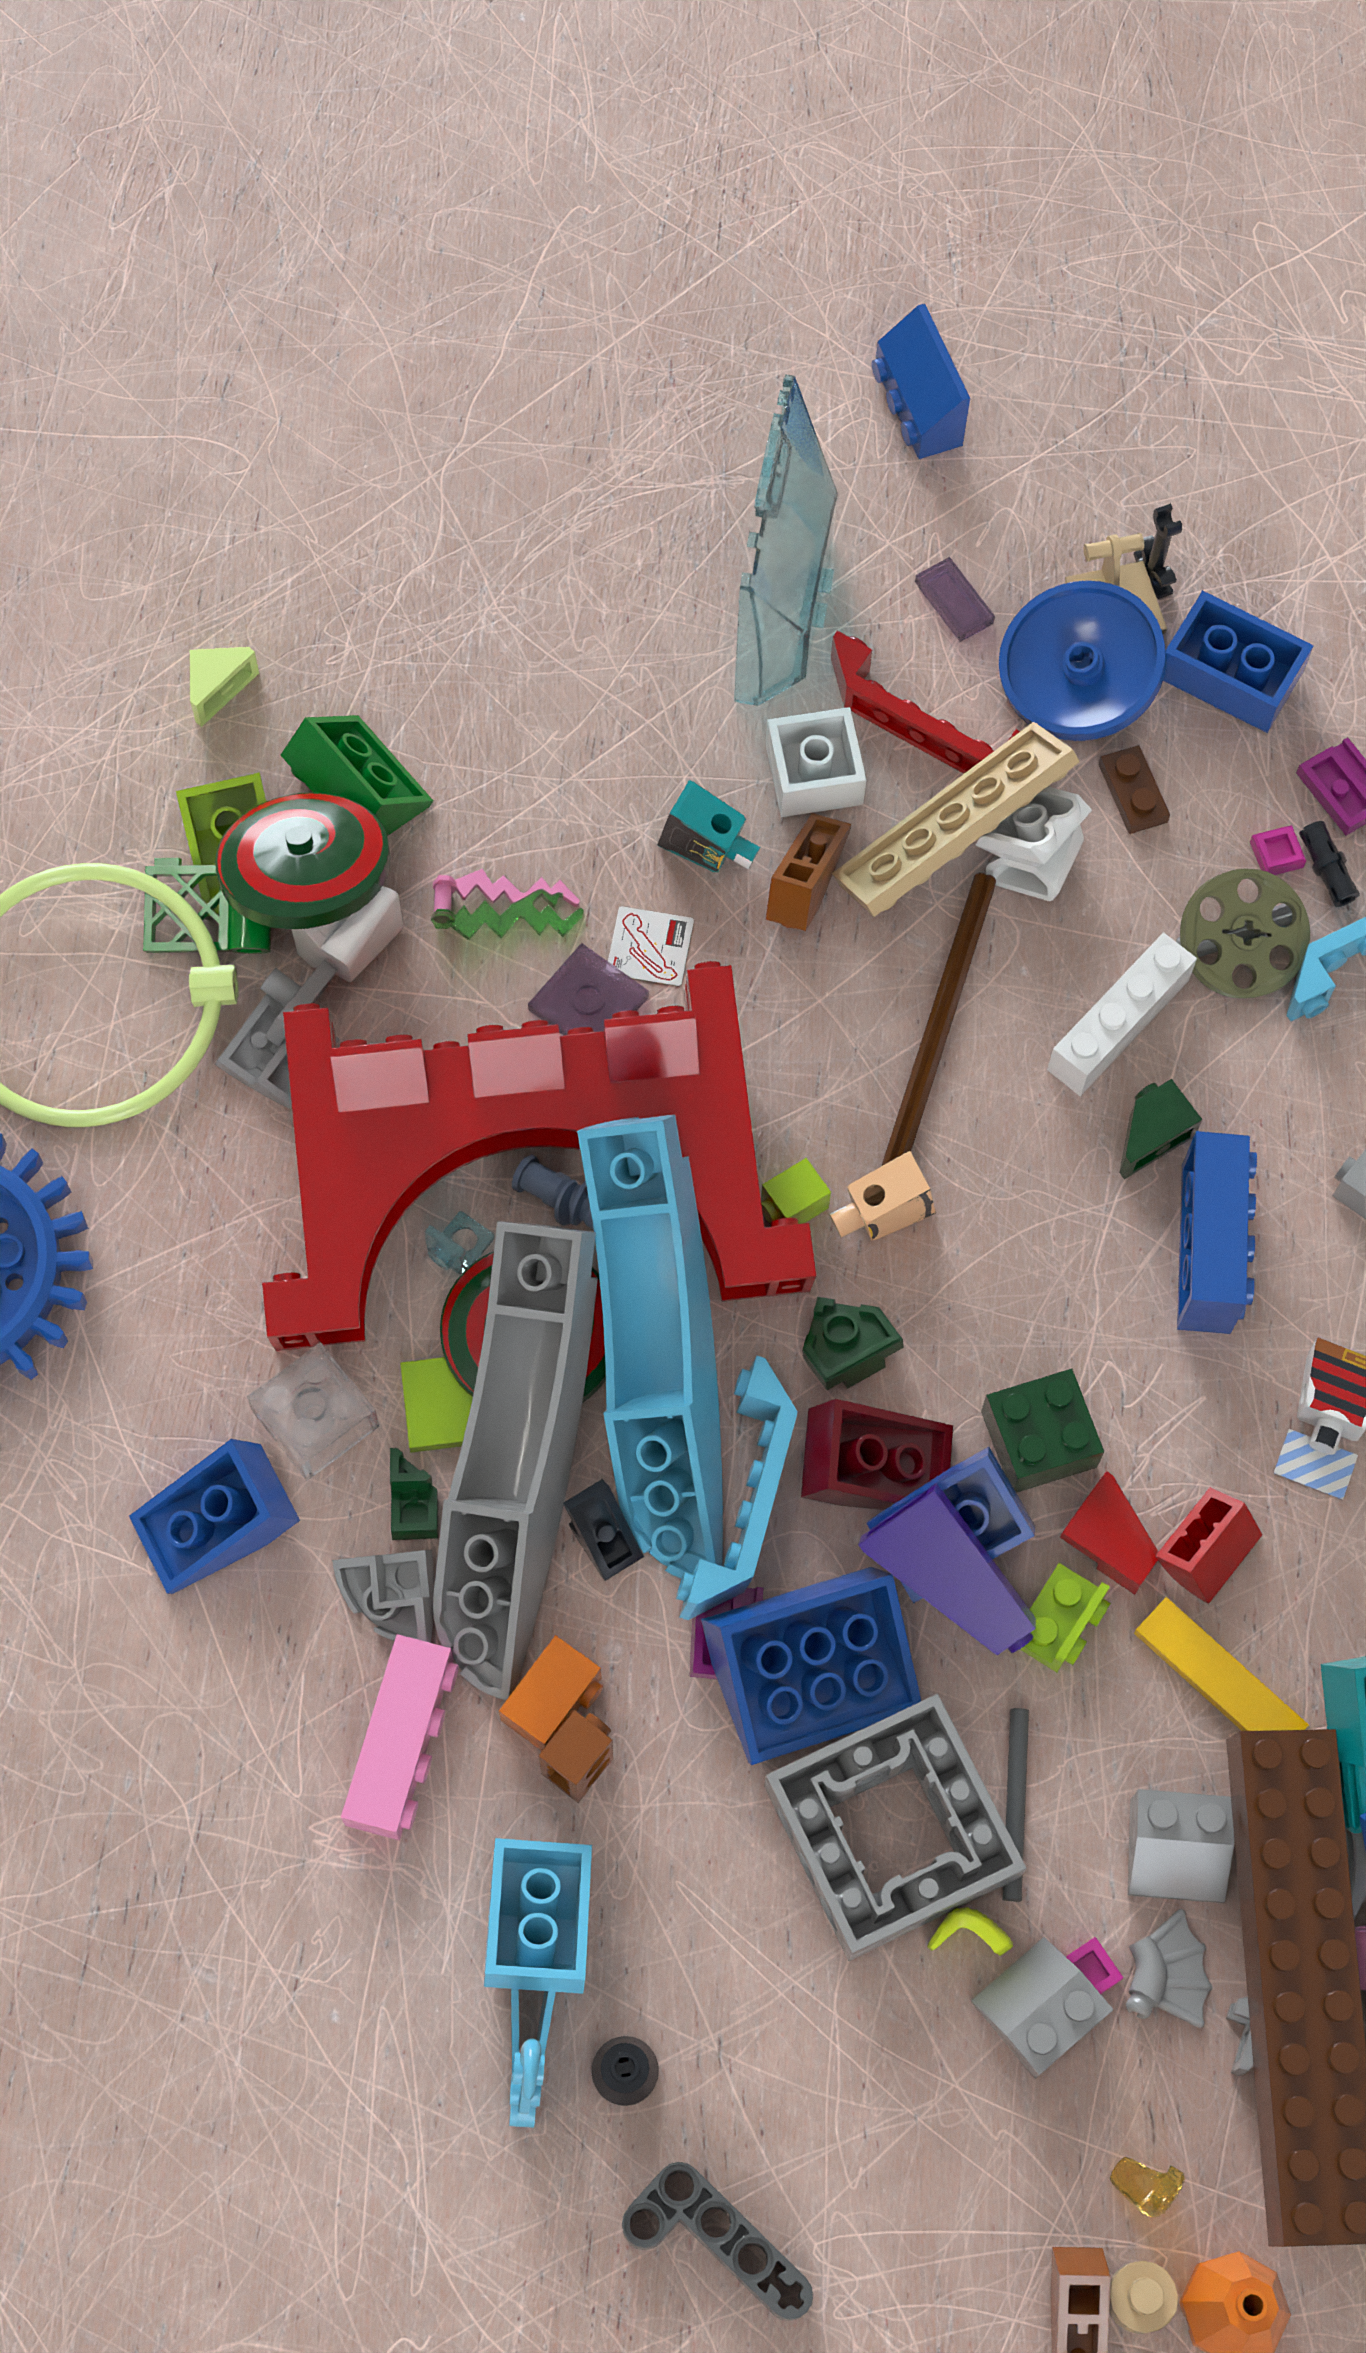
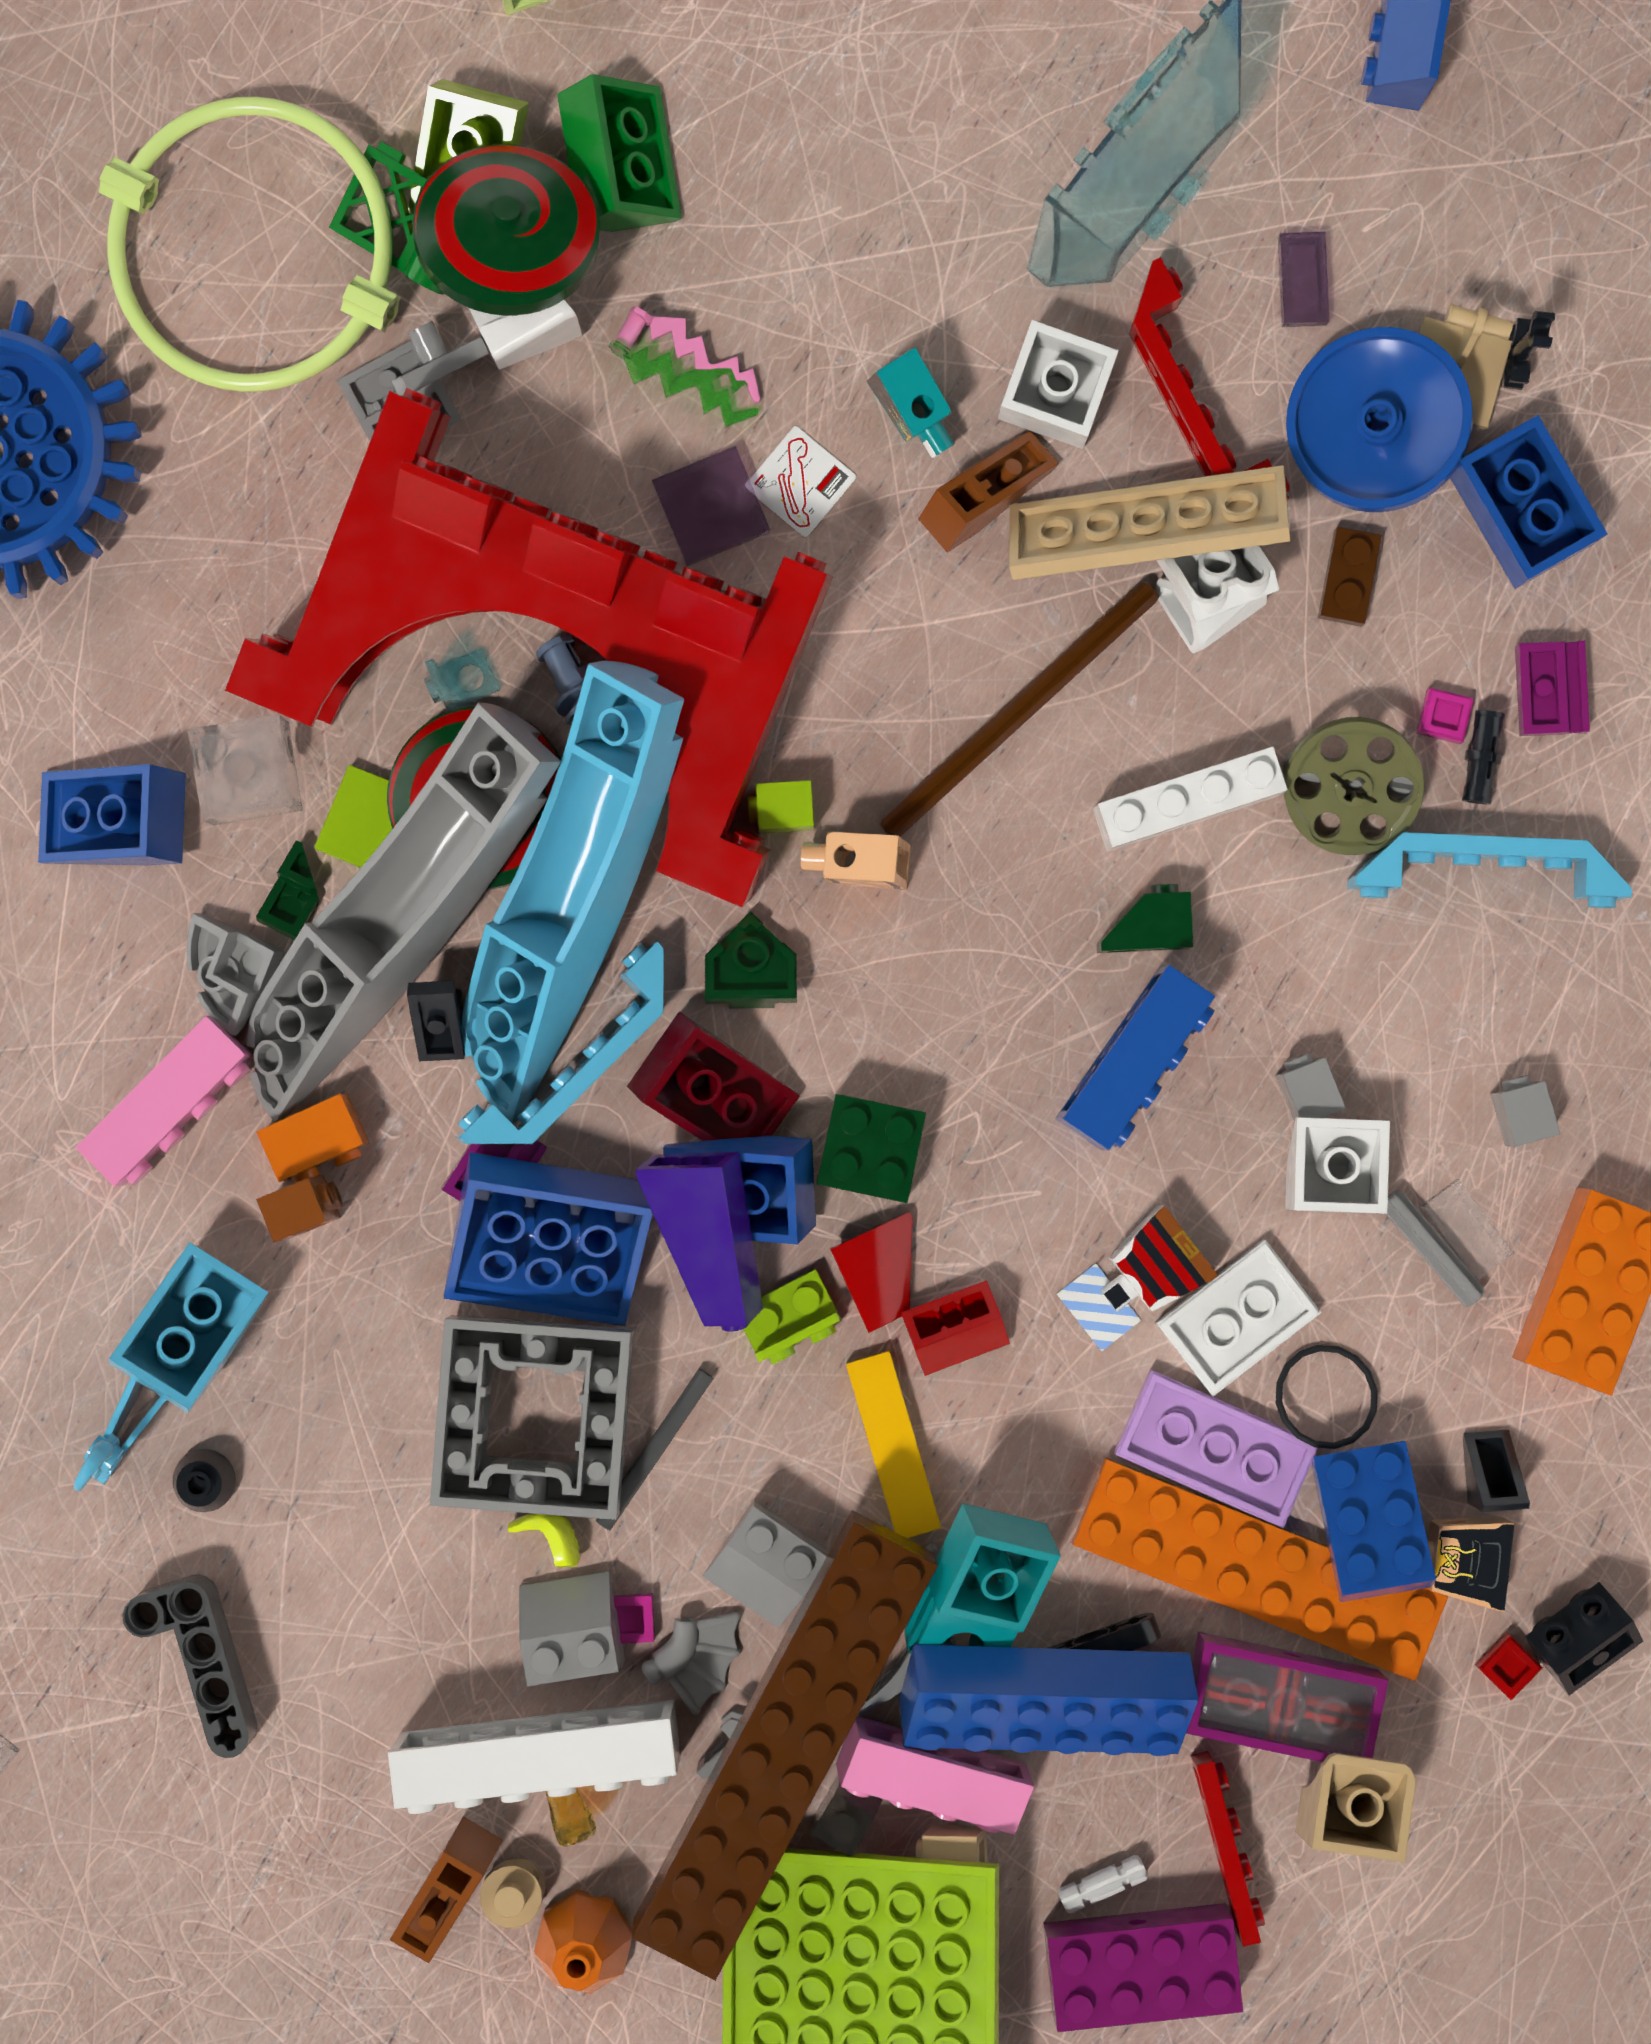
camera: 25 degrees right, 20 degrees up
(1085, 2137) = (534, 1756): none -> white brick

